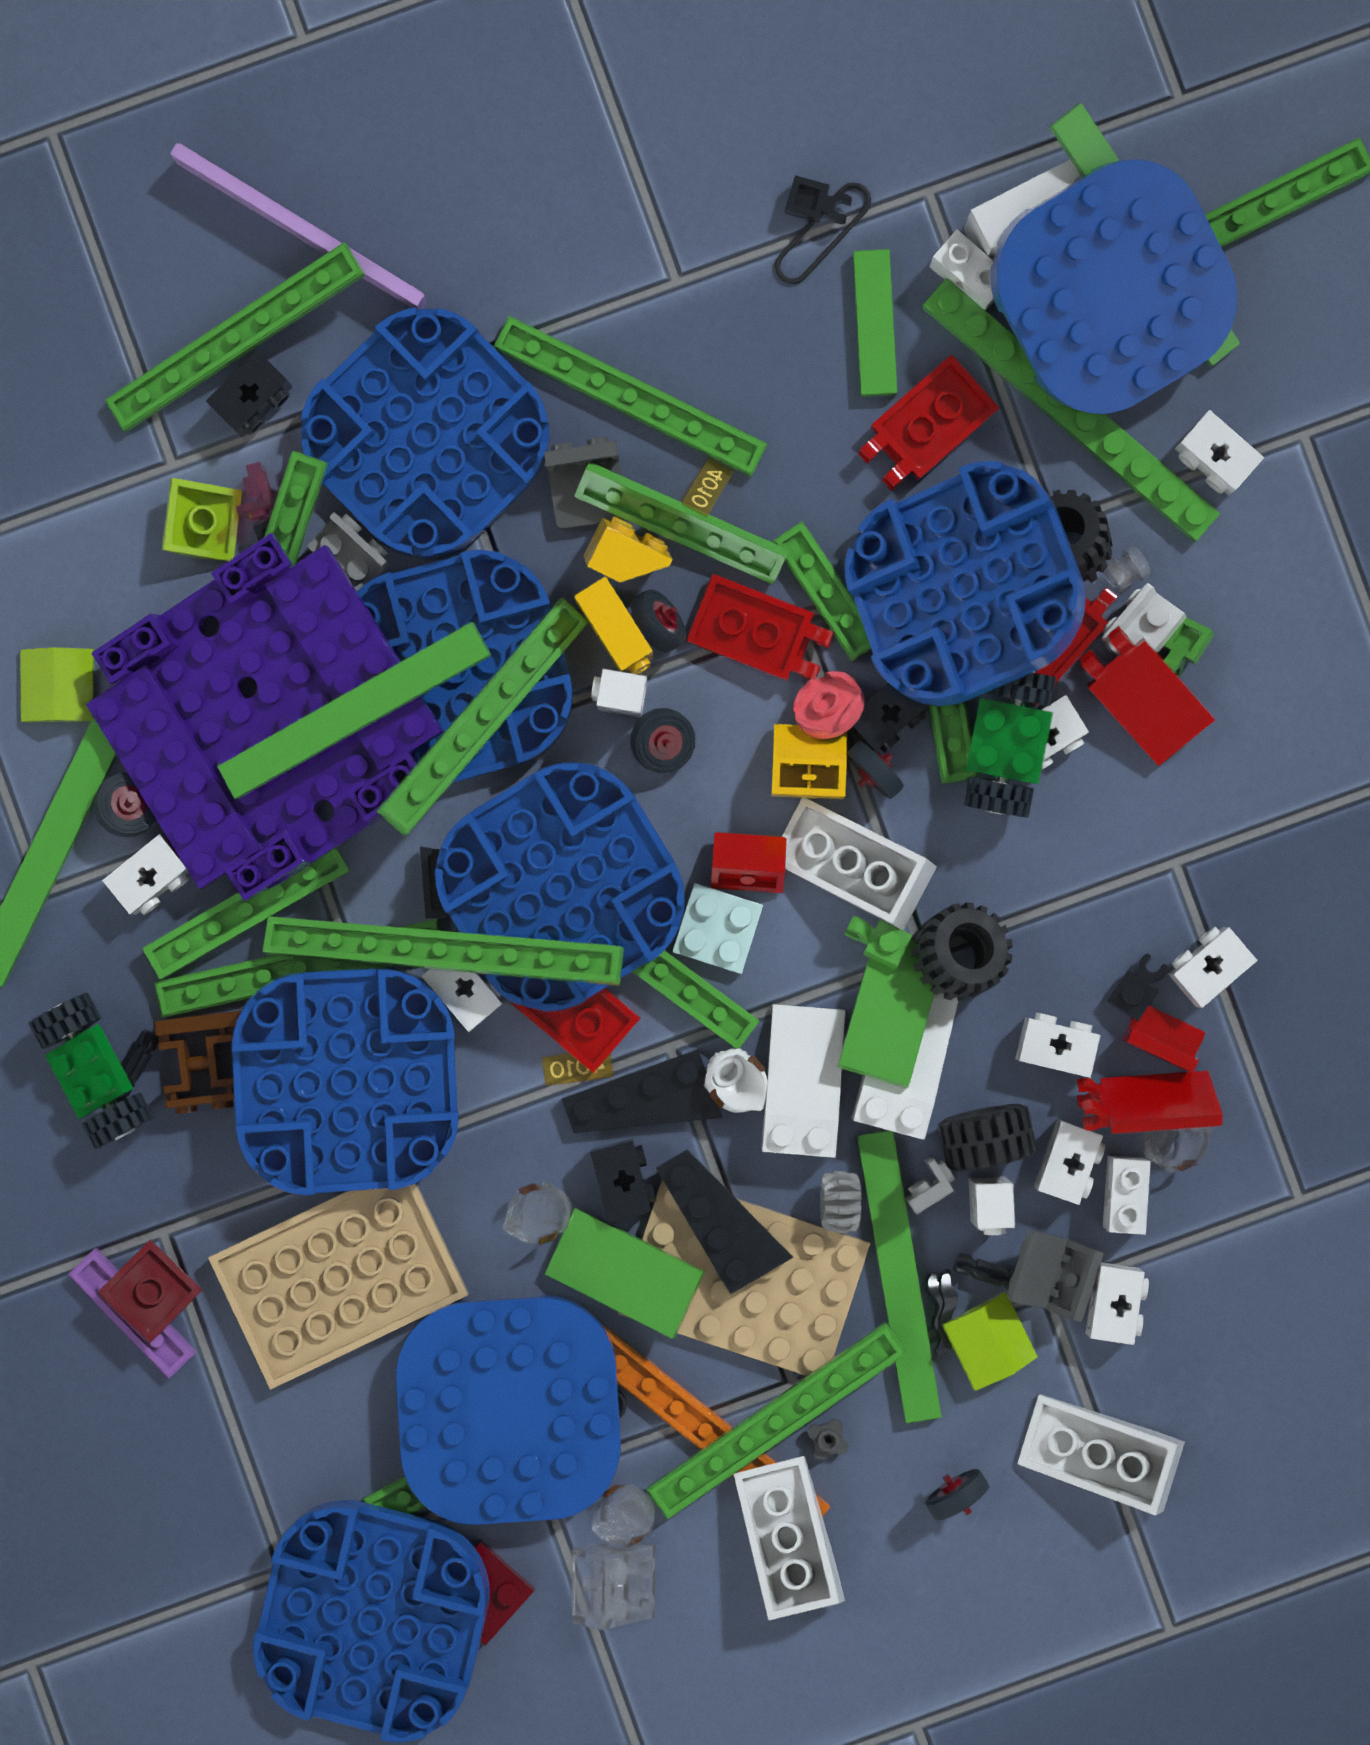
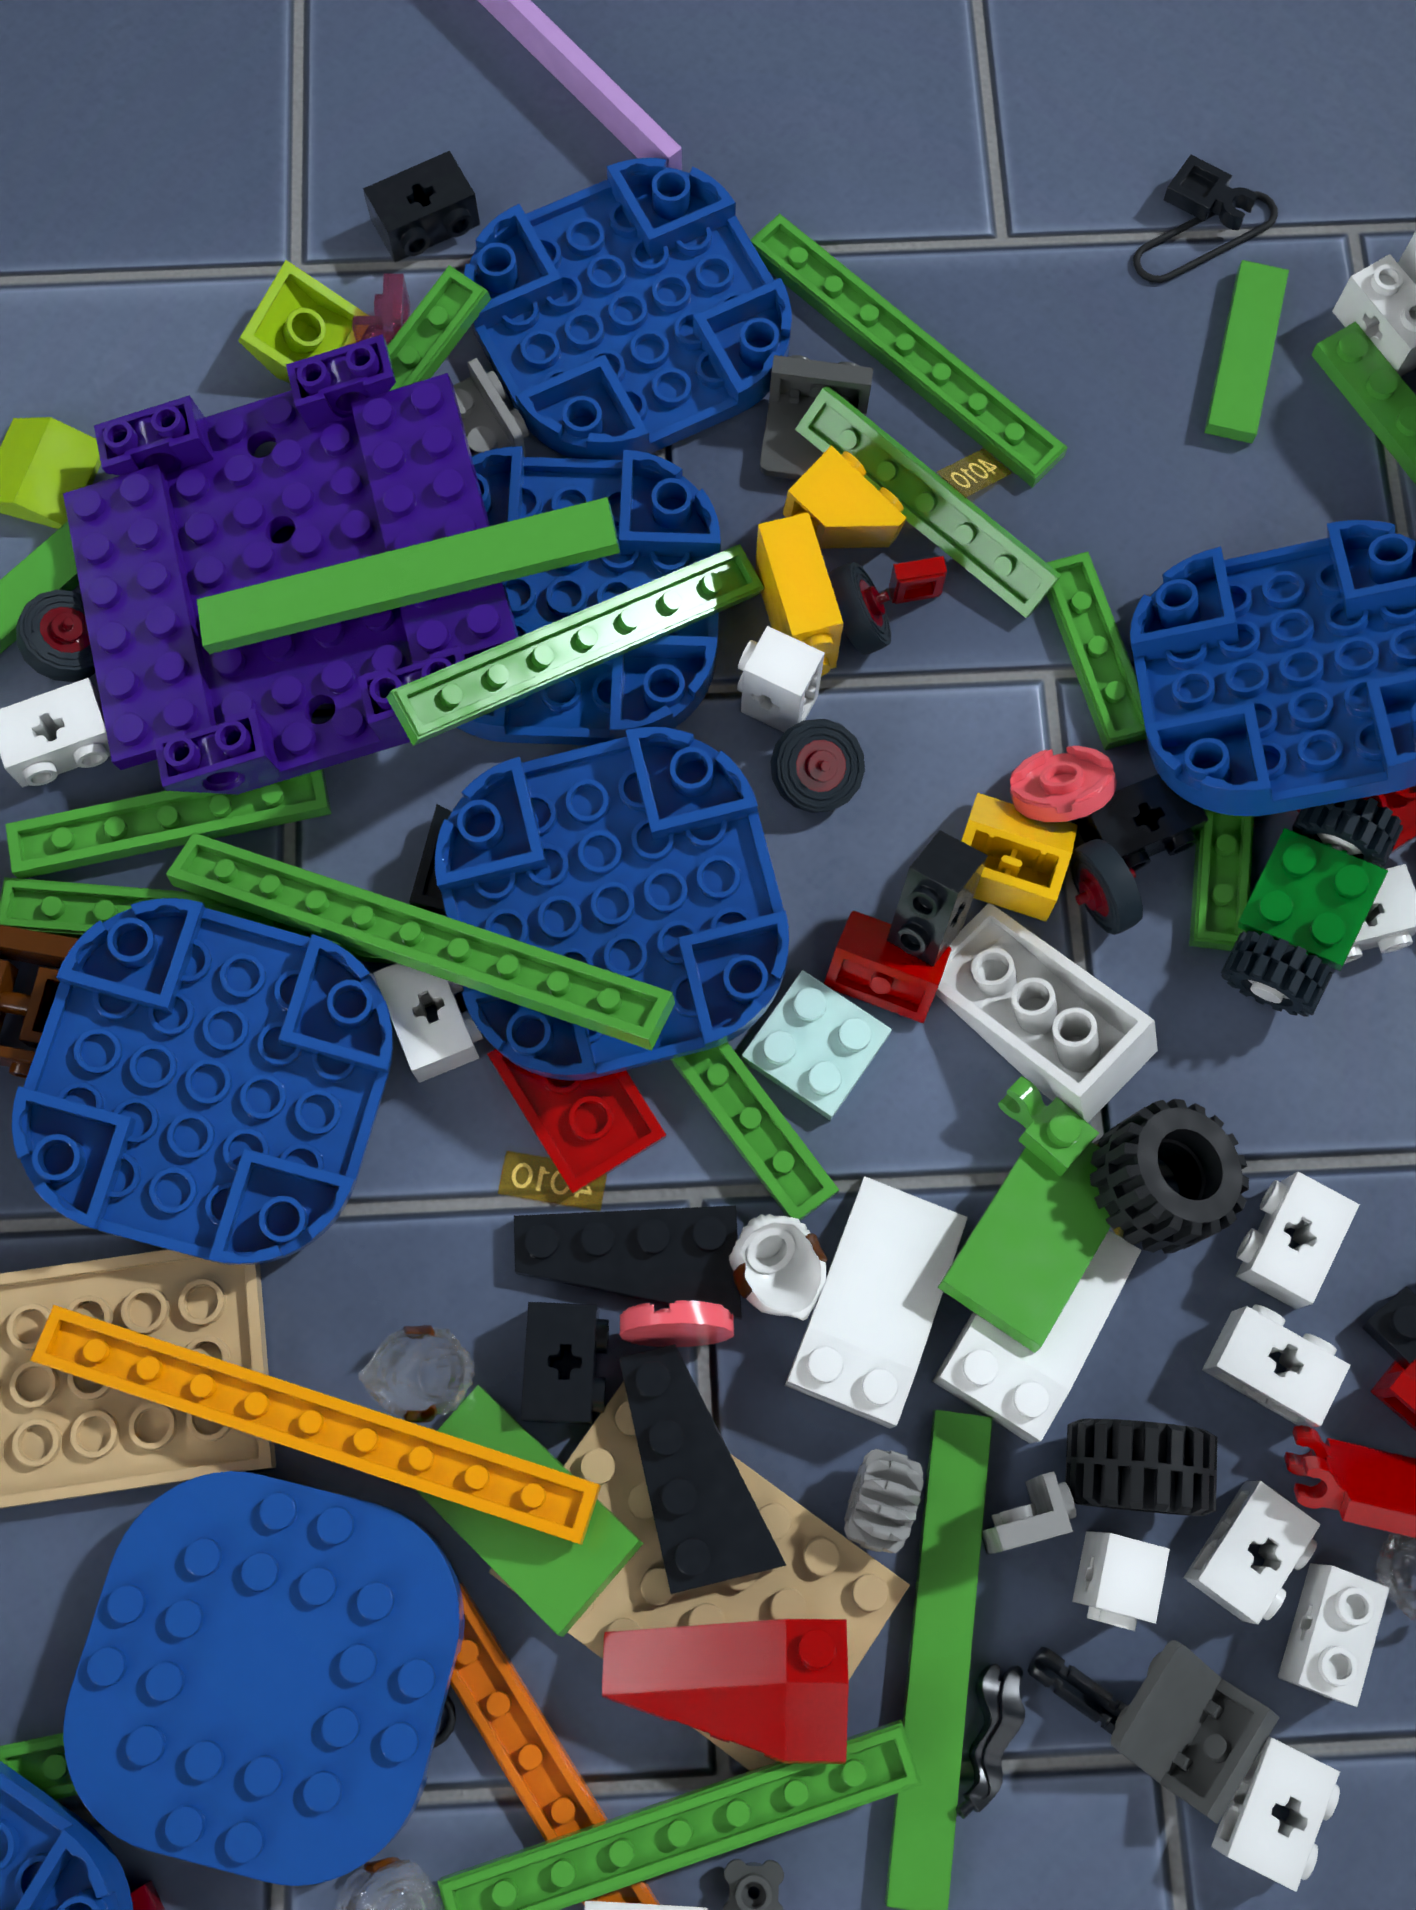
camera: 15 degrees right, 15 degrees down
(235, 337) = (422, 136): bright green tile -> none
(486, 1264) = (318, 1424): none -> light orange plate
(685, 1137) = (680, 1324): none -> coral tile
(691, 582) = (917, 580): none -> red tile
(756, 630) = (990, 669): red tile -> none
(767, 818) = (936, 897): none -> black brick
(788, 1331) = (747, 1683): none -> red wedge
(929, 422) = (1288, 483): red tile -> none
(990, 1341) = (1057, 1811): lime slope -> none
(1066, 949) = (1320, 1225): none -> white brick

